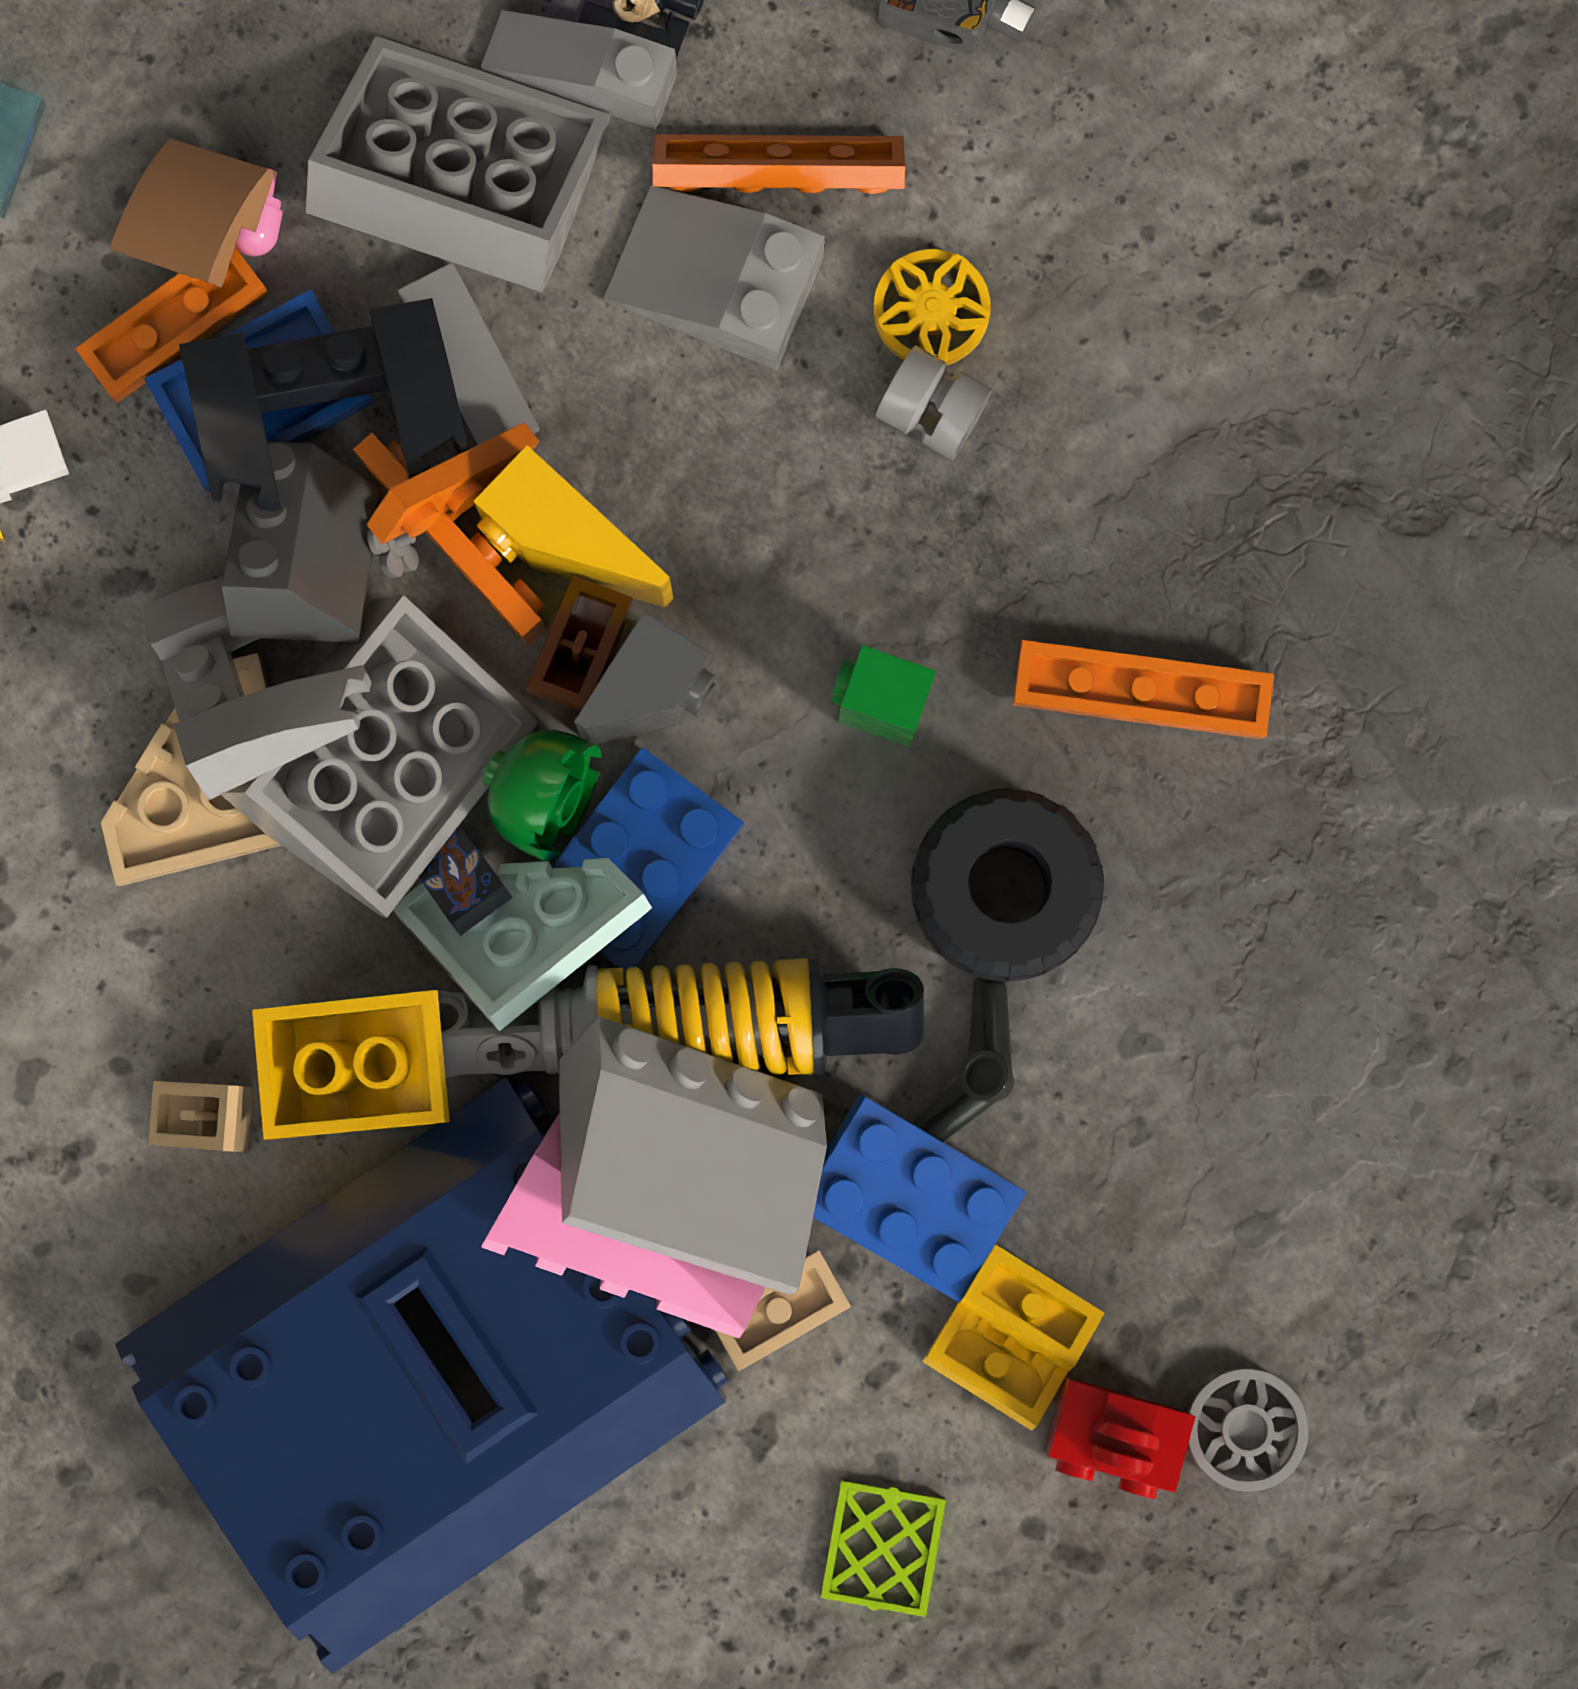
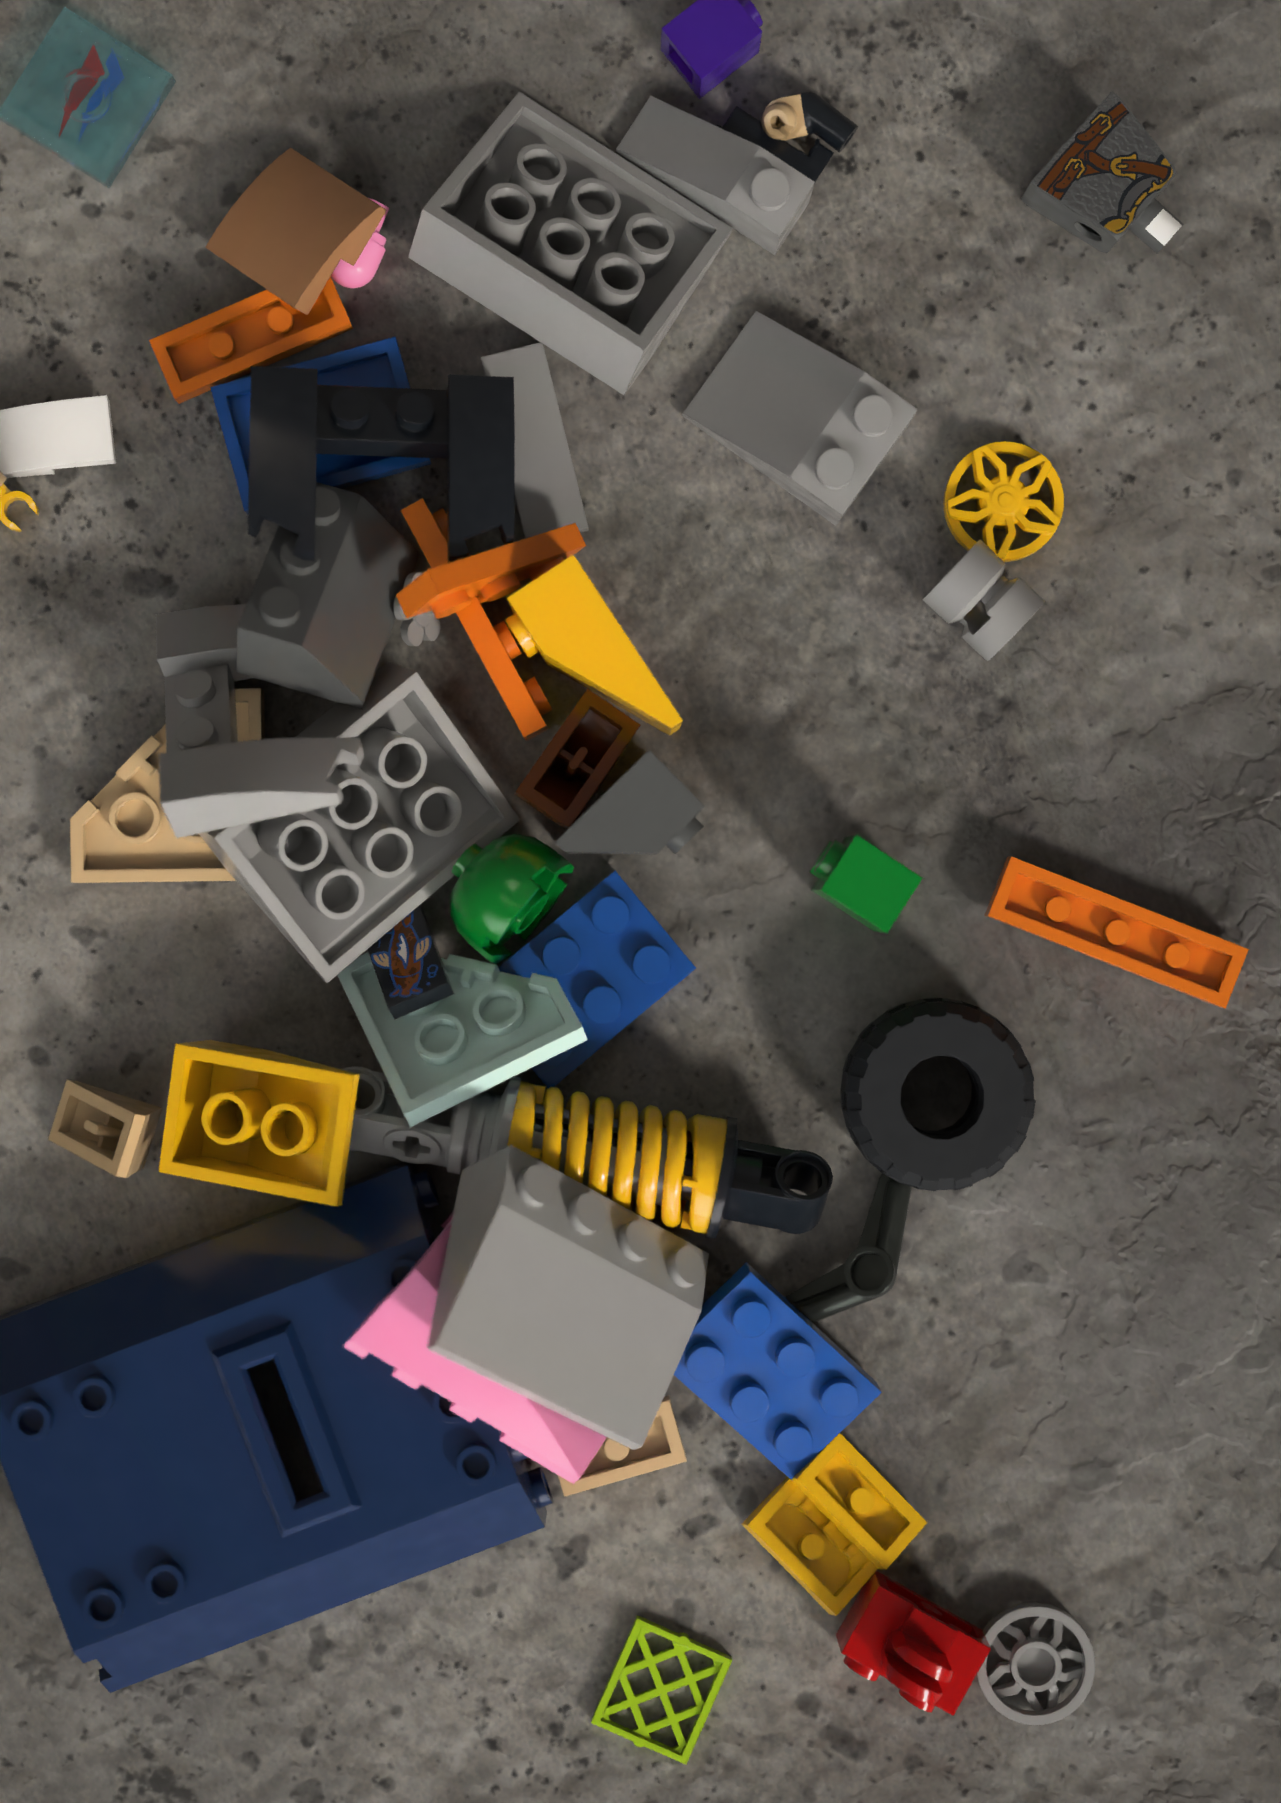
camera: 15 degrees right, 5 degrees up
(778, 161) = (889, 319): orange plate -> none

